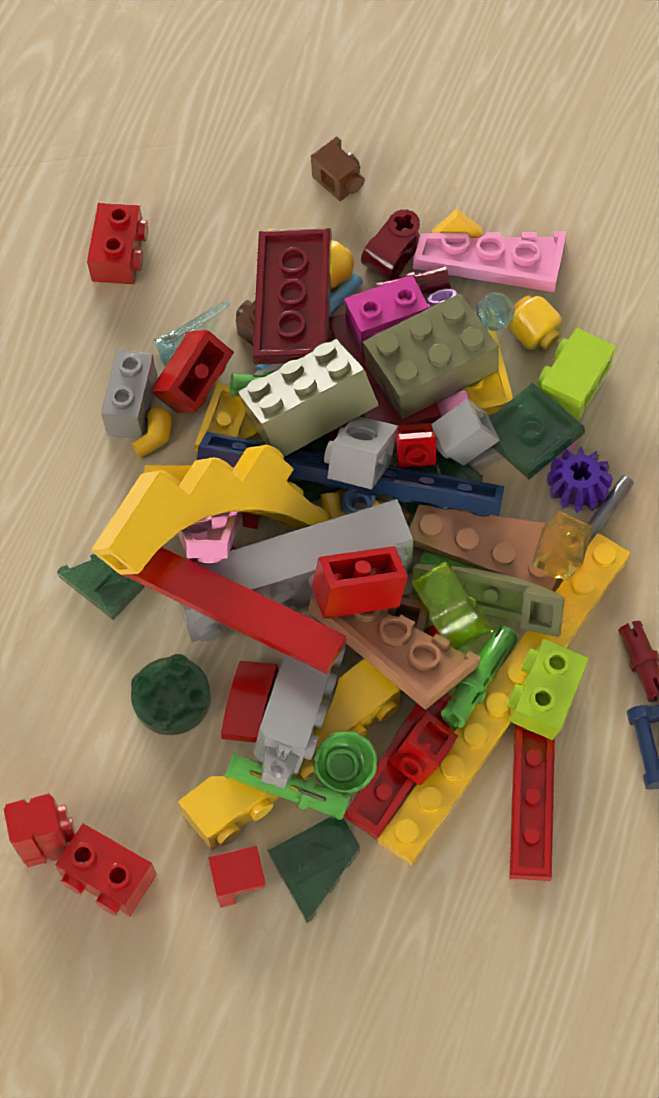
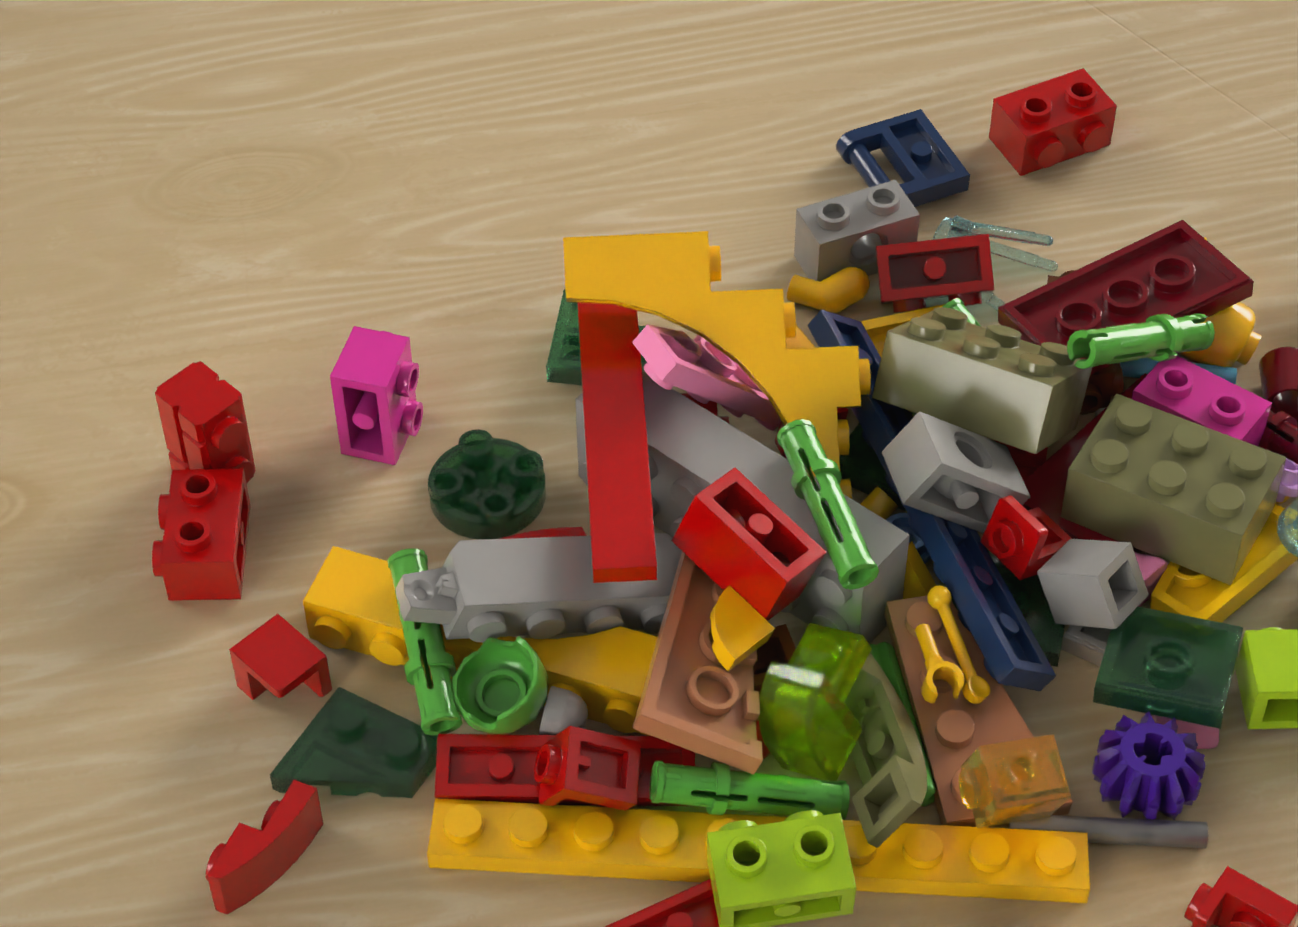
camera: 55 degrees right, 15 degrees down
(77, 717) = (375, 395): none -> dark pink brick
(86, 326) = (915, 152): none -> dark blue plate
(311, 514) = (805, 452): none -> bright green pin
(341, 299) = (1156, 338): none -> bright green pin
(359, 956) = (260, 857): none -> red slope
(377, 737) = (562, 711): none -> light grey hinge
(397, 619) = (736, 629): none -> yellow tile
(472, 540) = (936, 667): none -> yellow hand
(488, 528) = (975, 688): none -> yellow hinge

